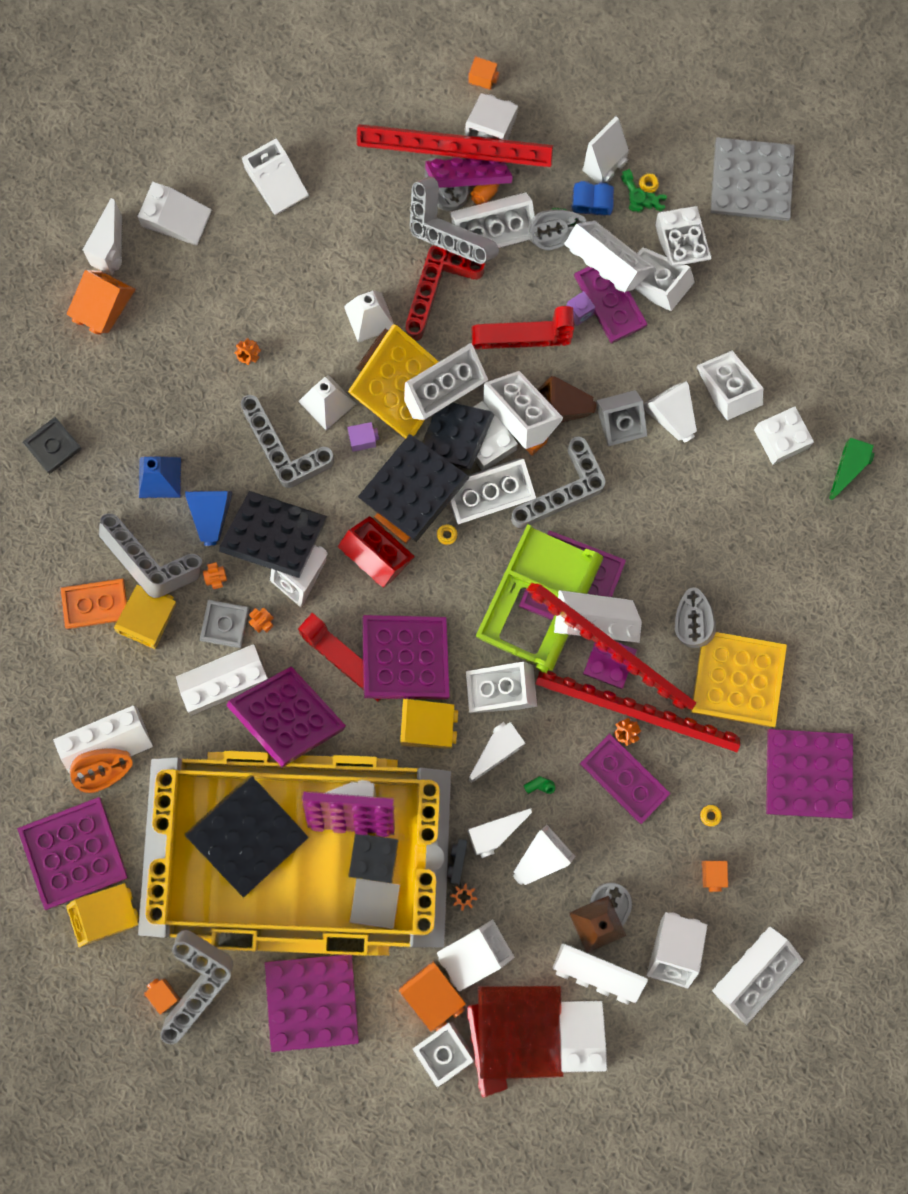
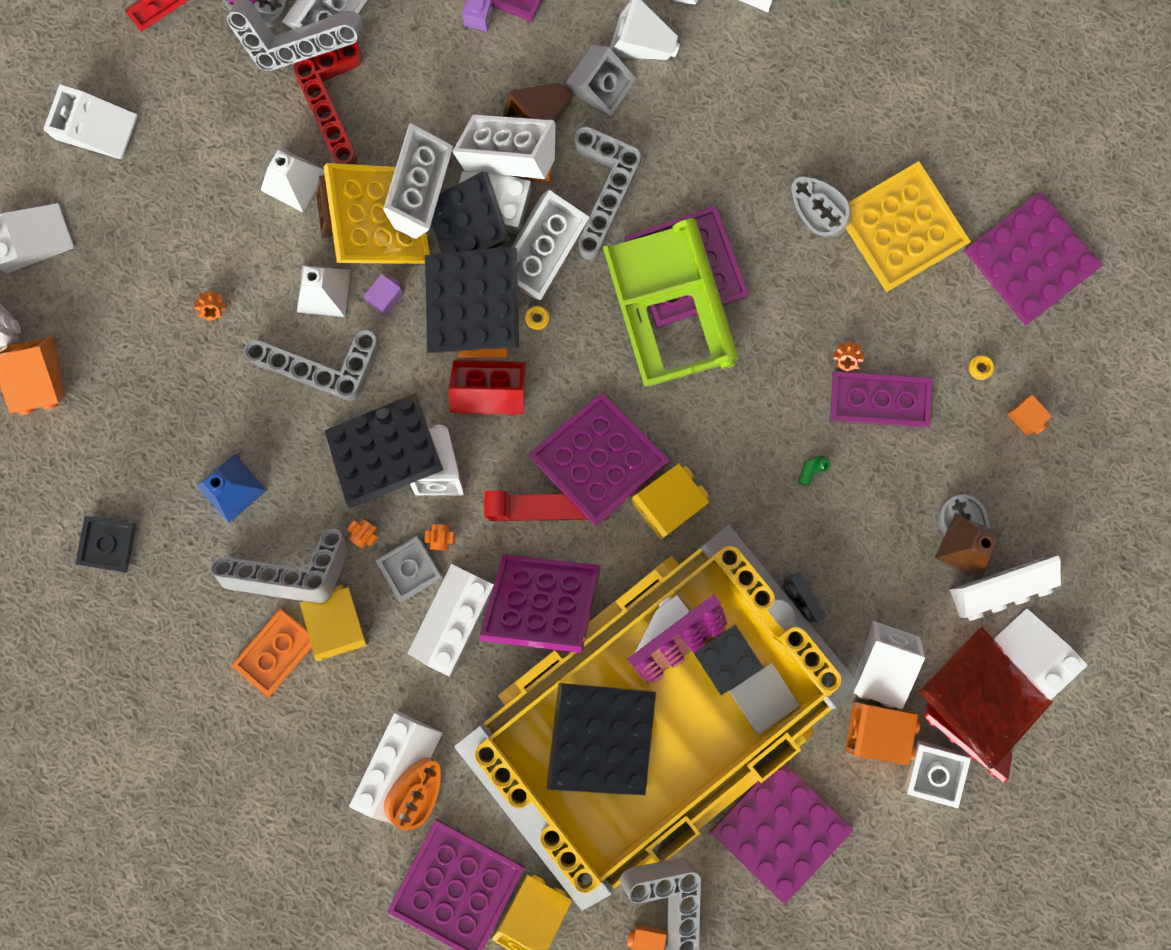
camera: 35 degrees left, 5 degrees up
(209, 513) = (306, 482): blue slope -> none
(467, 902) = (840, 625): orange gear -> none
(492, 834) = (814, 546): white slope -> none
(500, 746) = (751, 468): white slope -> none
(501, 688) = (705, 413): white slope -> none
(526, 334) = (452, 73): red beam -> none
(543, 857) = (872, 529): white slope -> none
(605, 669) = (778, 308): magenta plate -> none
(606, 643) = (773, 291): red plate -> none
(611, 615) = (738, 276): white slope -> none
(642, 712) = (849, 326): red plate -> none
(677, 950) = (1055, 507): white slope -> none
(758, 975) = (1138, 469): white slope -> none

